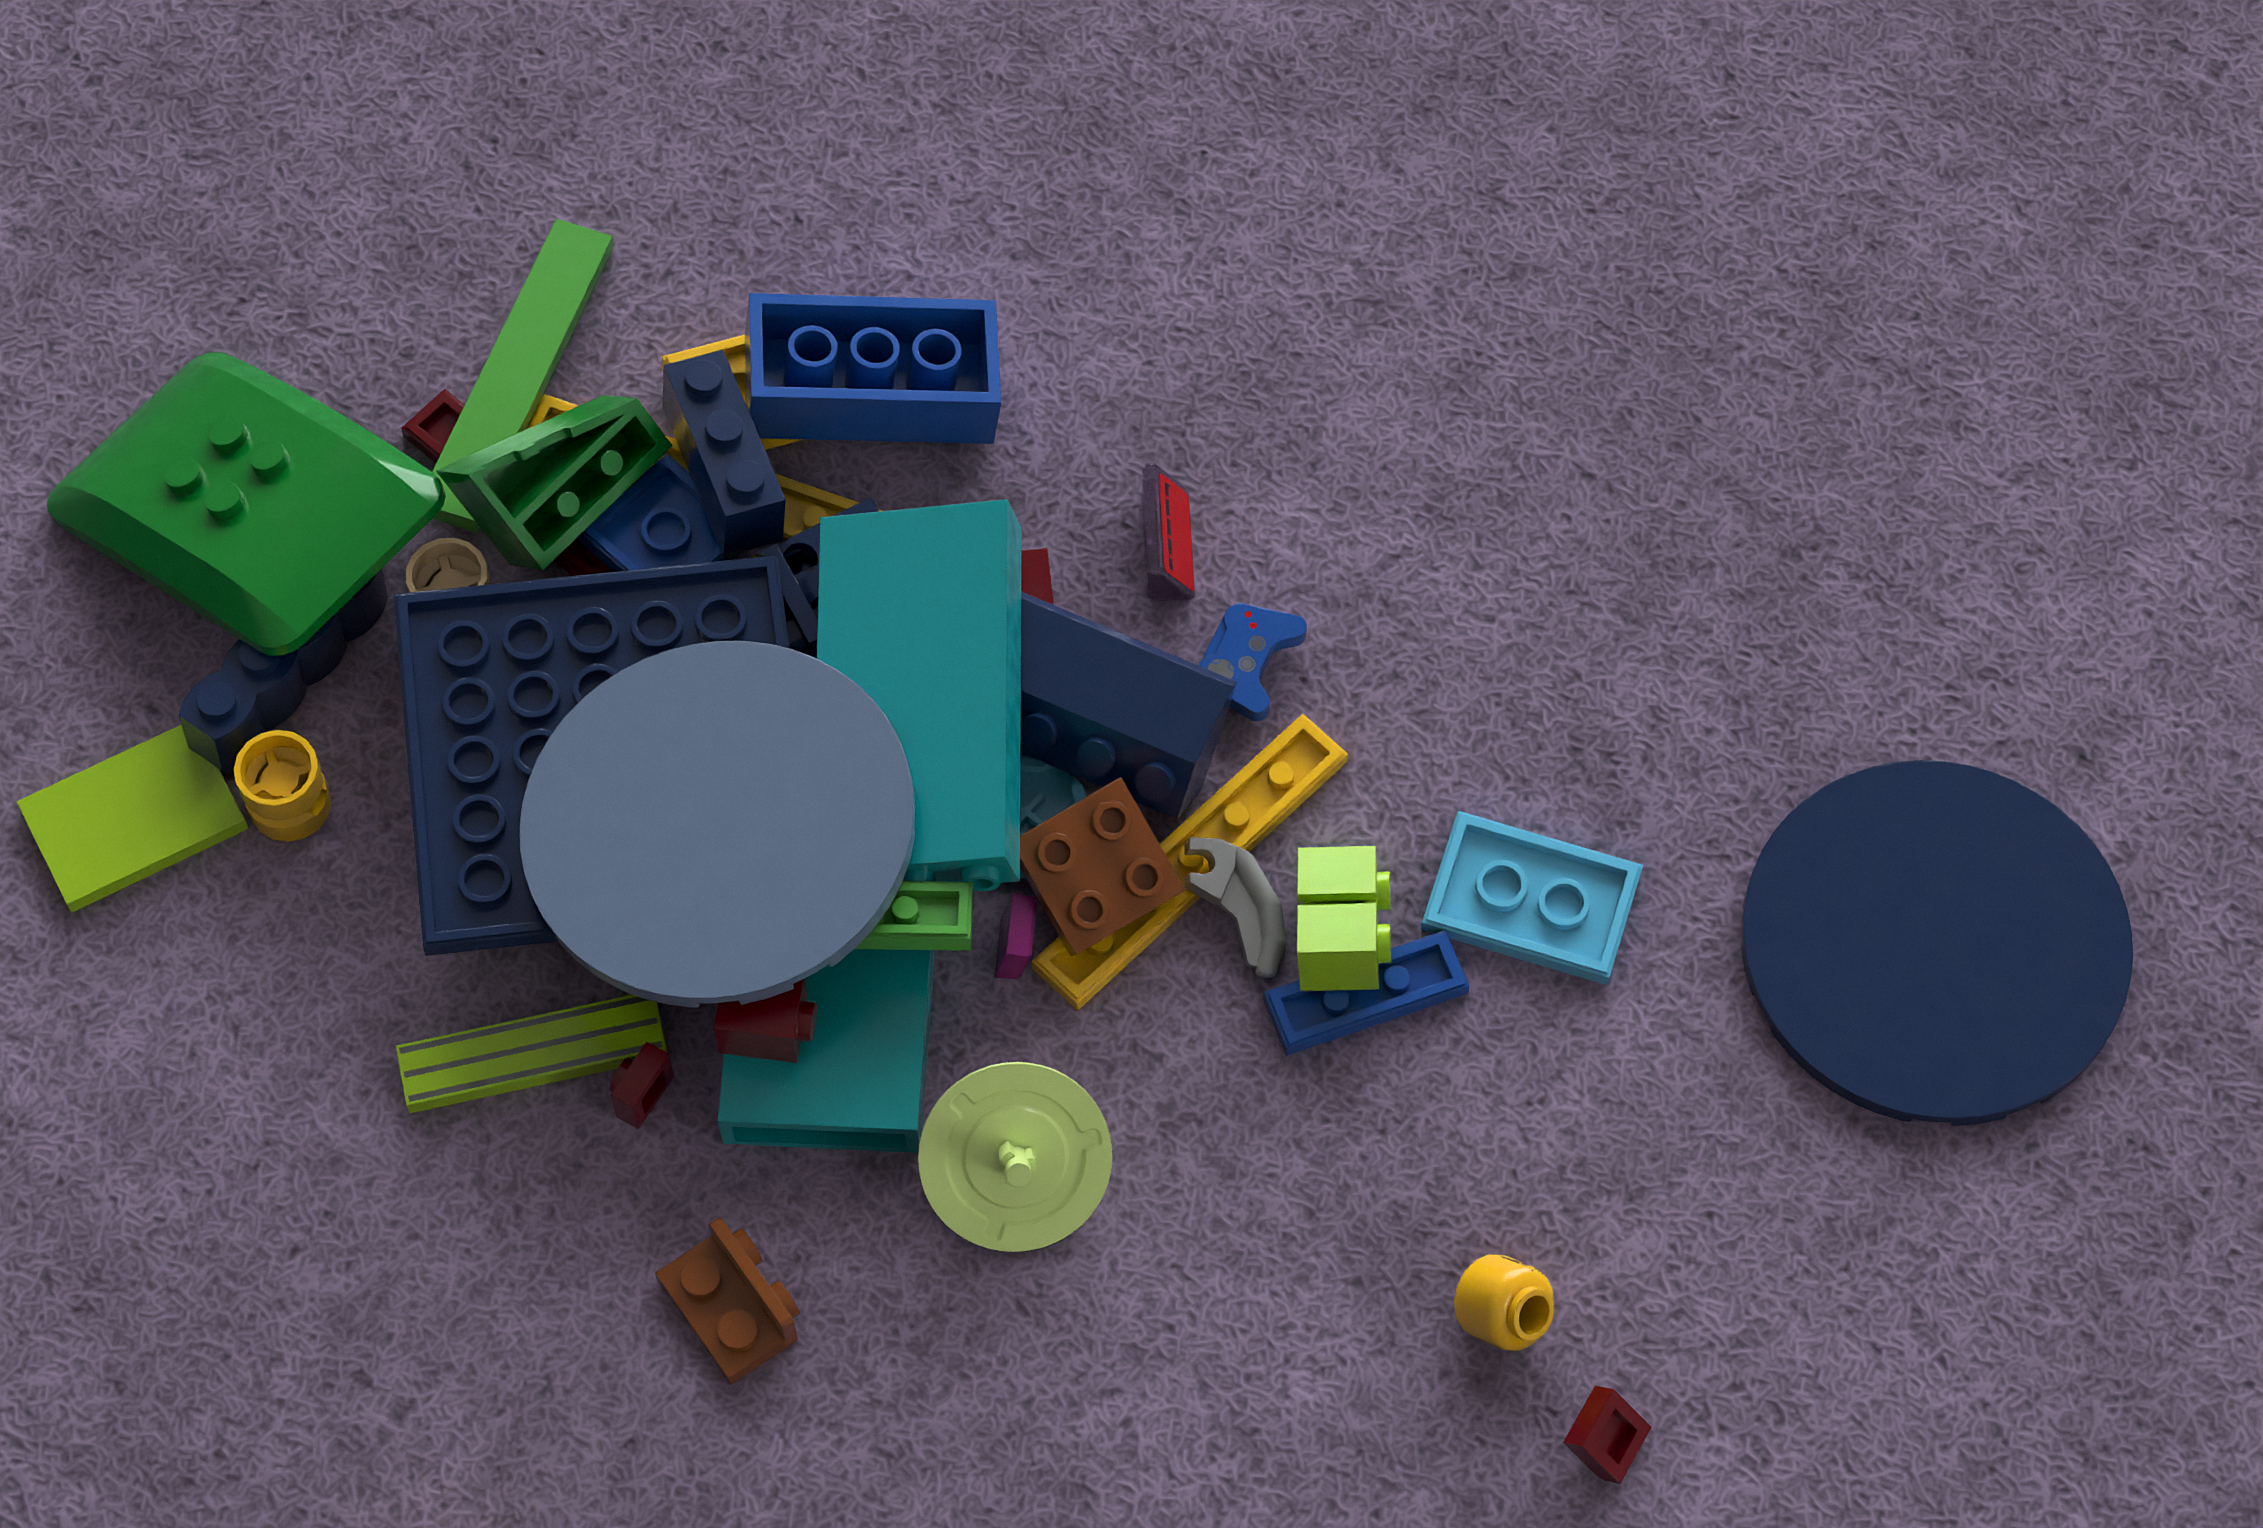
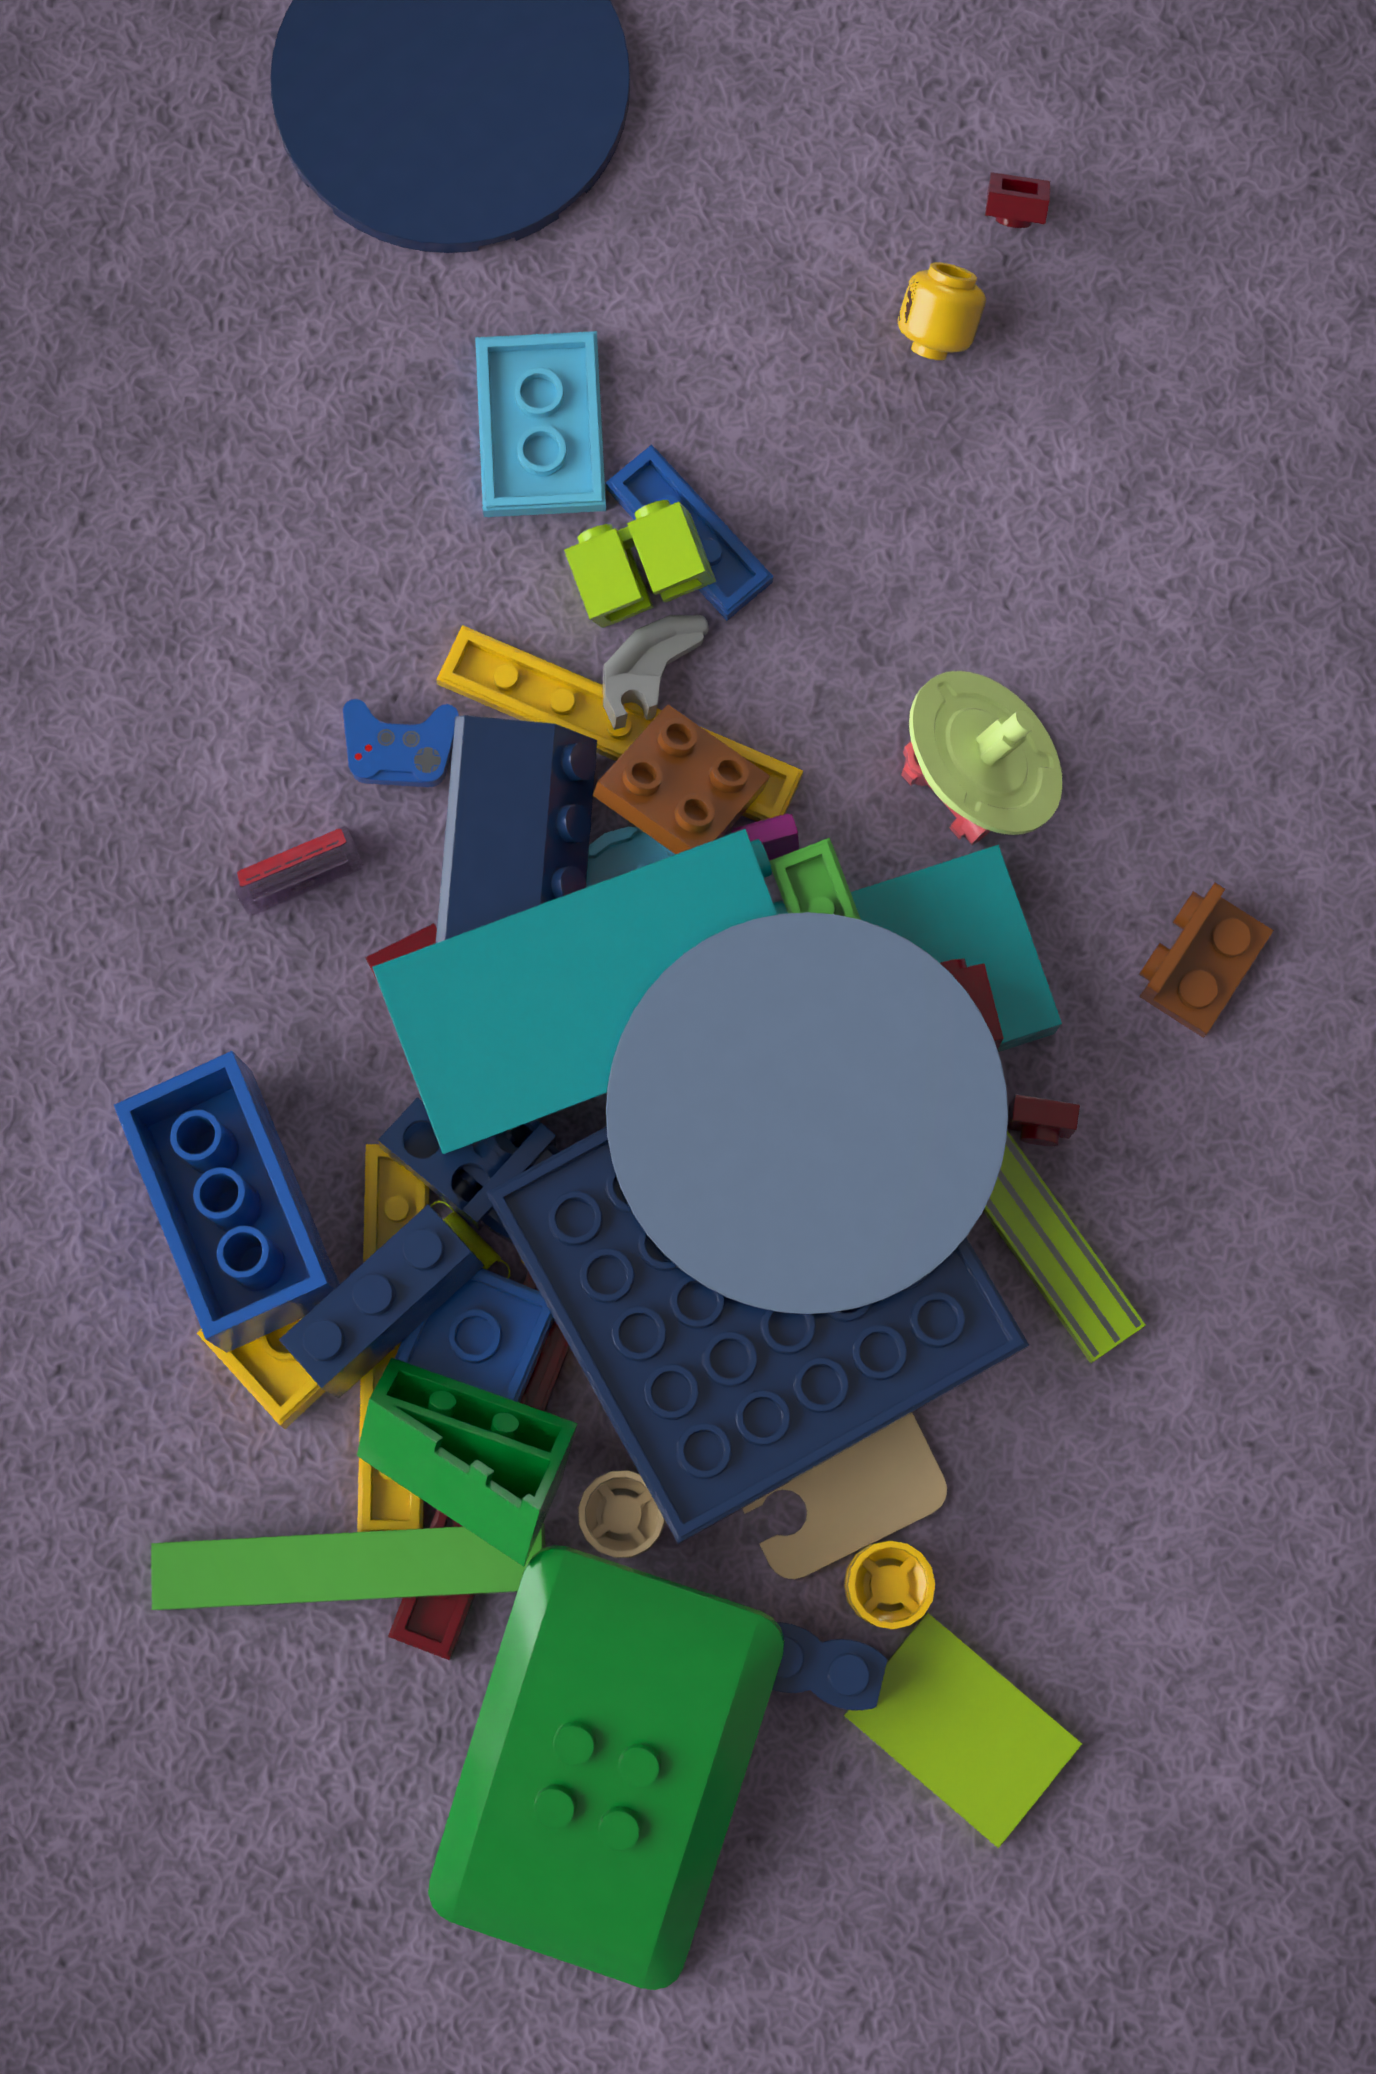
camera: 110 degrees left, 15 degrees up
(369, 807) = (858, 1499): none -> tan piece

